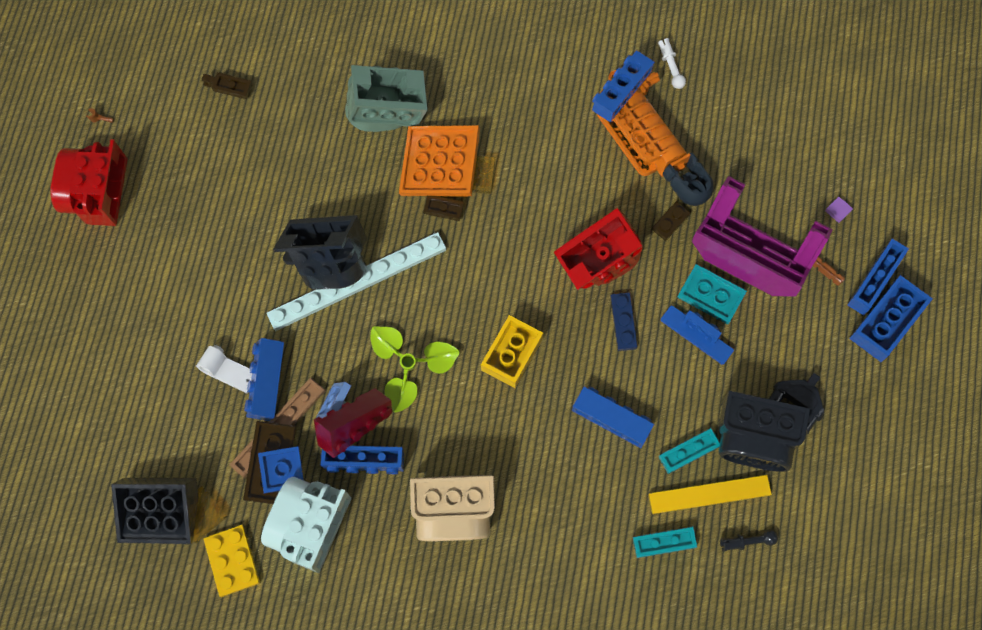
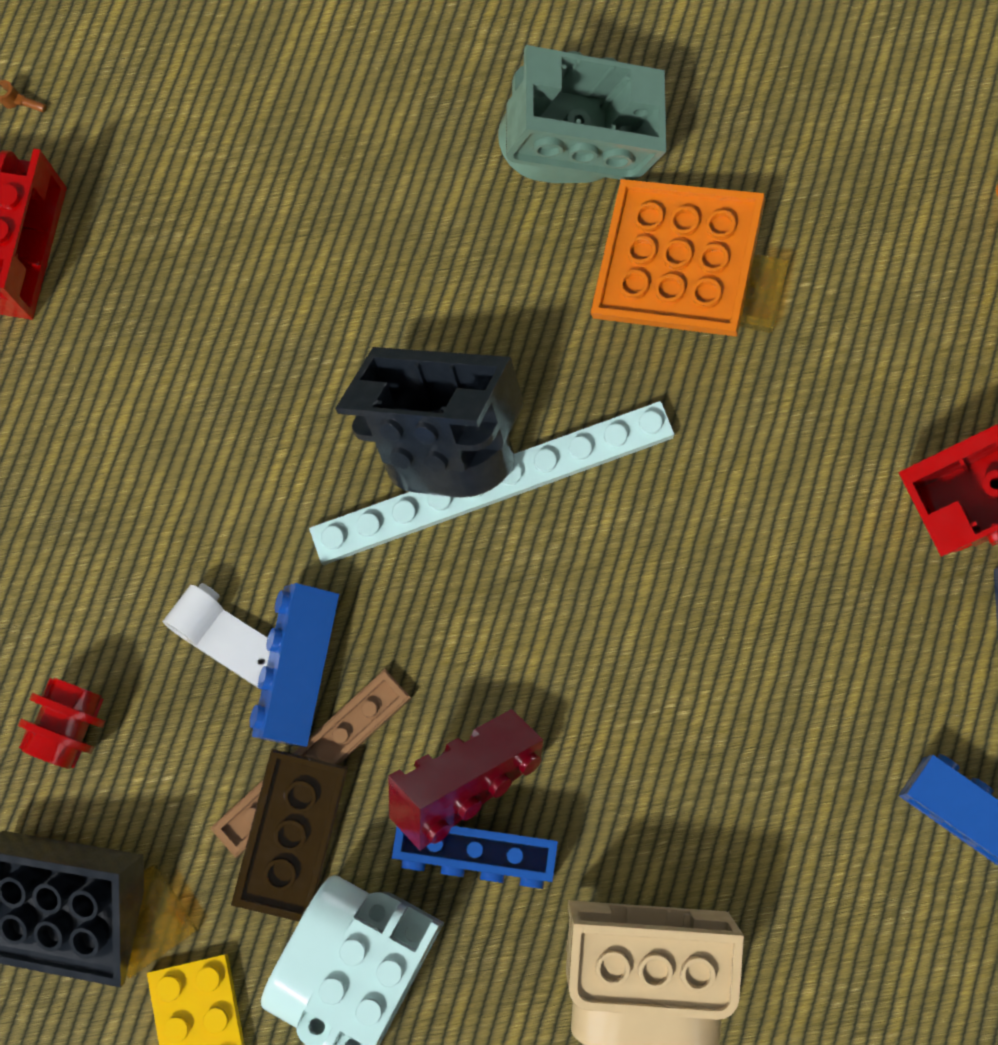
camera: 10 degrees right, 5 degrees up
(149, 420) = (61, 723): none -> red piece
(228, 85) = (273, 60): dark brown plate -> none
(279, 466) = (309, 852): blue plate -> none
(334, 399) = (428, 726): medium blue tile -> none
(402, 392) = (642, 651): lime plant -> none
(443, 208) = (676, 352): dark brown plate -> none
(512, 351) = (793, 664): yellow brick -> none

